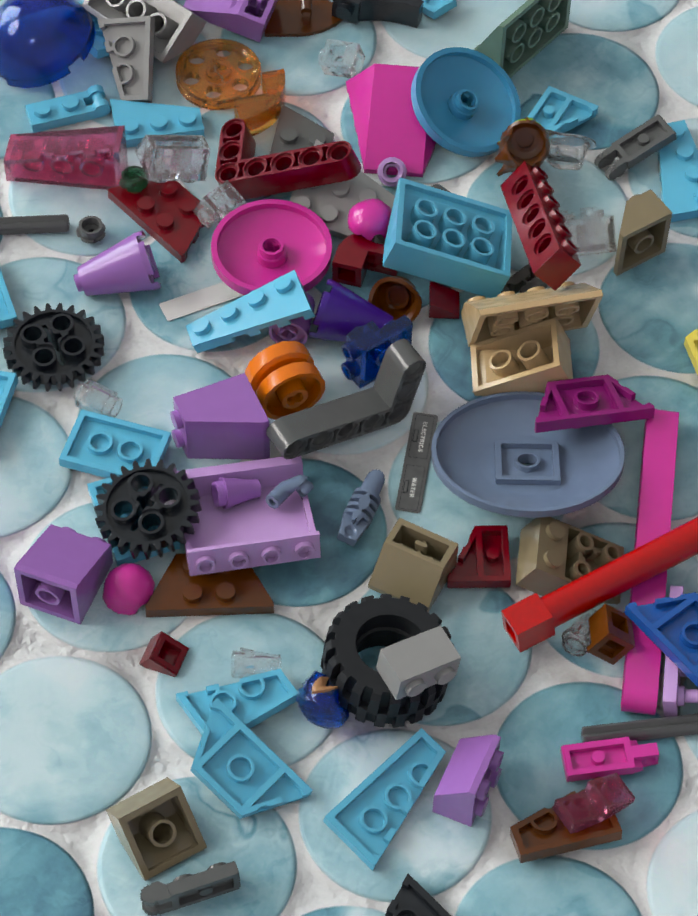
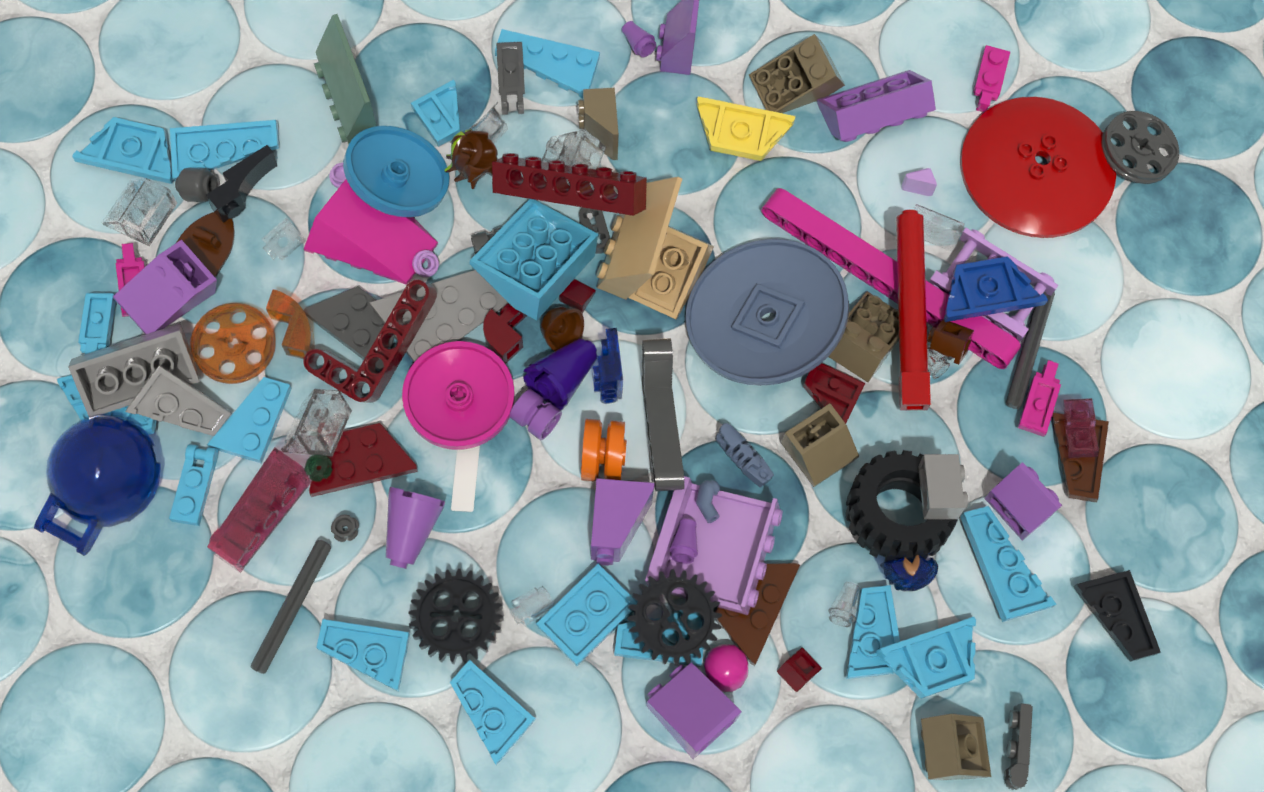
camera: 65 degrees left, 15 degrees up
(218, 204) = (387, 413): clear brick -> none
(266, 306) = (523, 434): medium azure wing -> none
(369, 218) = (479, 305): dark pink hair -> none
(416, 463) = (715, 394): flat silver sticker -> none
(588, 403) = (743, 245): magenta wing -> none

